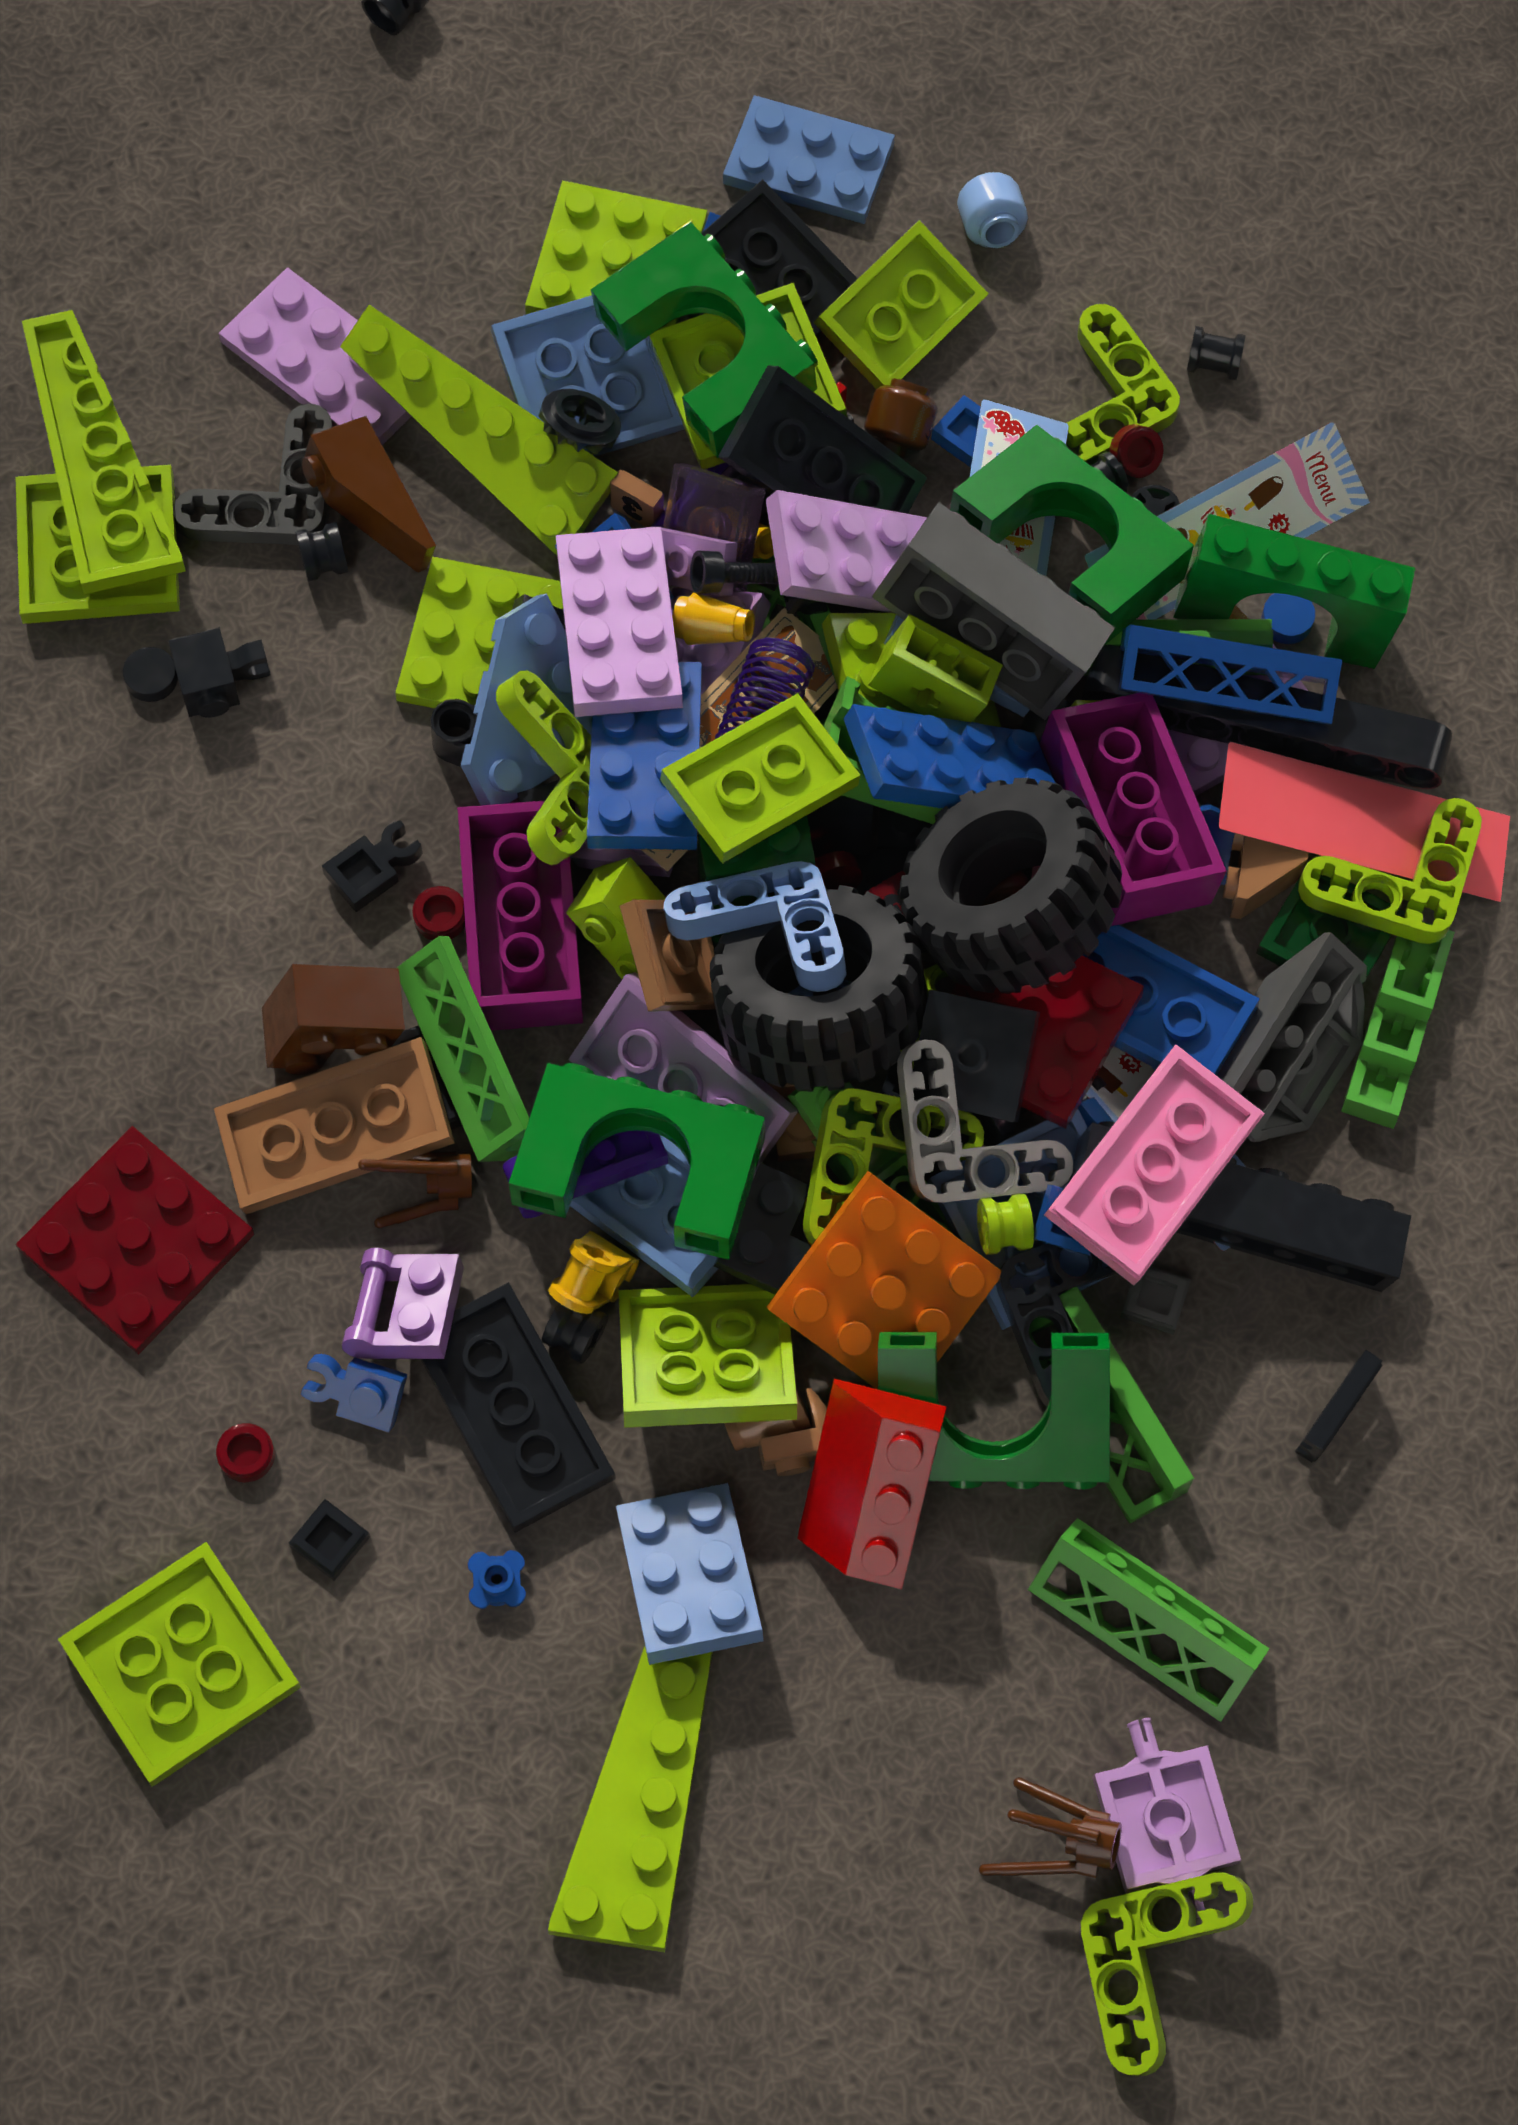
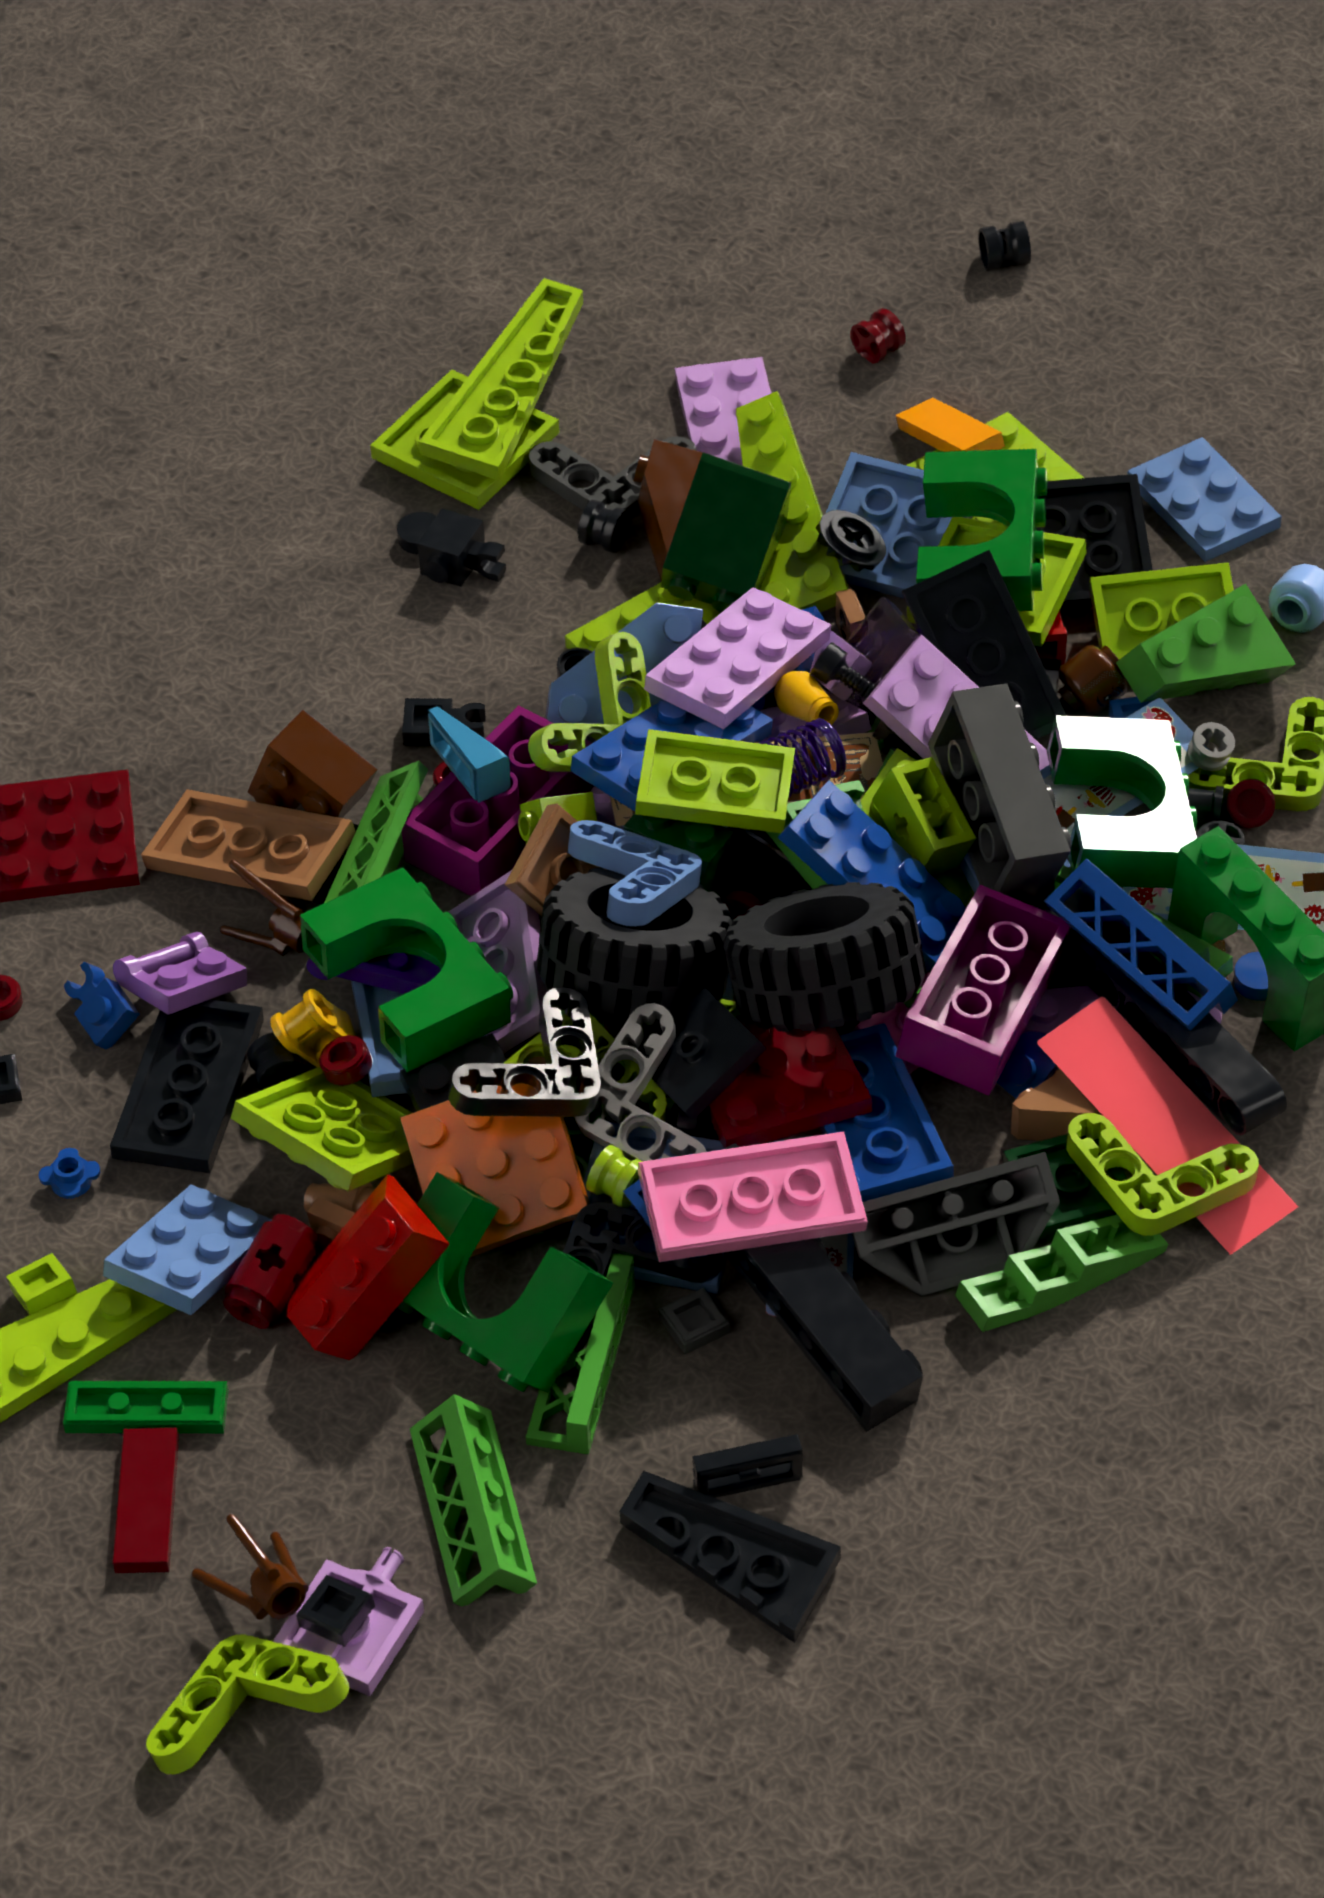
camera: 45 degrees right, 20 degrees down
(373, 174) = (878, 335): none -> dark red wheel
(481, 899) = (471, 758): none -> dark azure slope
(482, 498) = (725, 533): none -> dark green slope
(542, 238) = (948, 428): none -> light orange tile
(588, 1710) = (41, 1284): none -> lime plate
(649, 1284) = (345, 1060): none -> dark red tile
(778, 1569) = (270, 1271): none -> dark red piece
(788, 1751) = (122, 1405): none -> green tile
(878, 1839) = (146, 1500): none -> dark red tile
(898, 1184) = (550, 1079): none -> black beam
(983, 324) = (1208, 650): none -> bright green wedge
(1076, 411) = (1208, 759): none -> light grey bush
(1159, 1819) = (335, 1610): none -> black tile
(1406, 1488) = (741, 1554): none -> black wing

